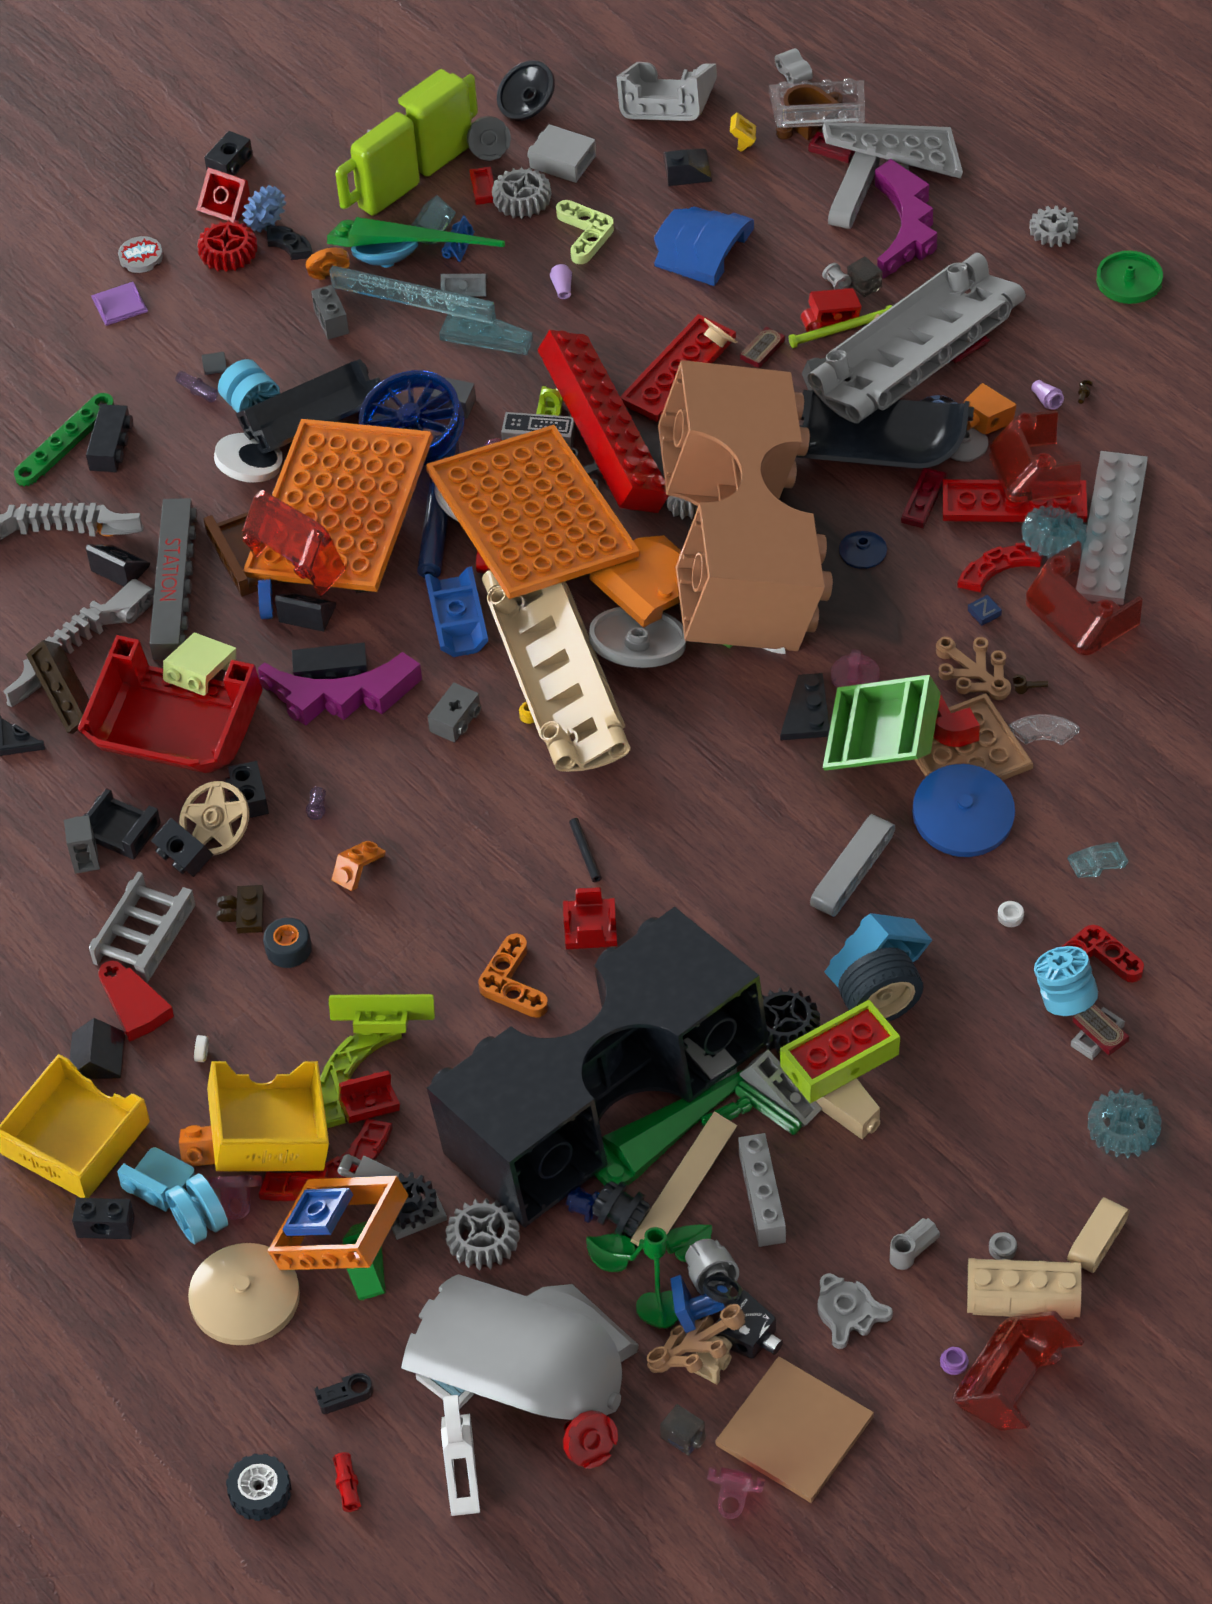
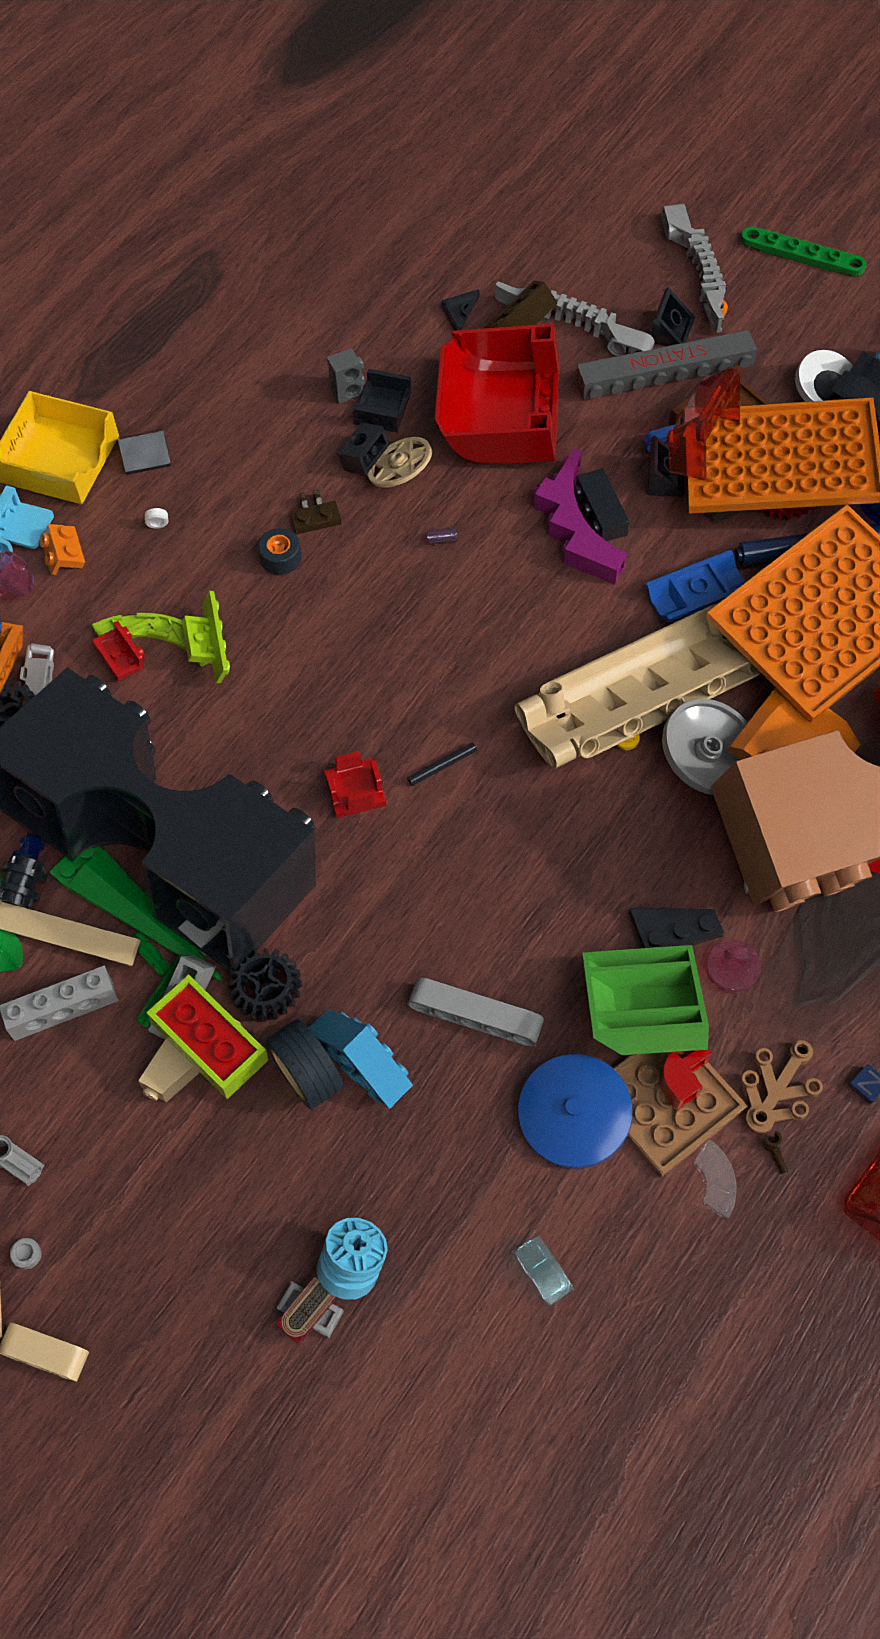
camera: 75 degrees right, 10 degrees up
(109, 438) = (812, 278): black brick -> none
(133, 1000) = (200, 458): red piece -> none
(157, 943) = (275, 462): light grey fence -> none
(197, 663) = (569, 403): yellowish green panel -> none
(248, 780) = (441, 480): black brick -> none
(268, 1123) = (71, 574): yellow piece -> none
(289, 1185) = (29, 616): red tile -> none
(351, 862) = (381, 579): orange bracket -> none
(454, 712) = (574, 615): dark grey brick -> none
(503, 979) = (276, 728): orange beam -> none
(1010, 914) = (451, 1187): white tile -> none
(1104, 943) = (422, 1292): red beam -> none
(1124, 1132) = (179, 1368): clear light blue gear -> none

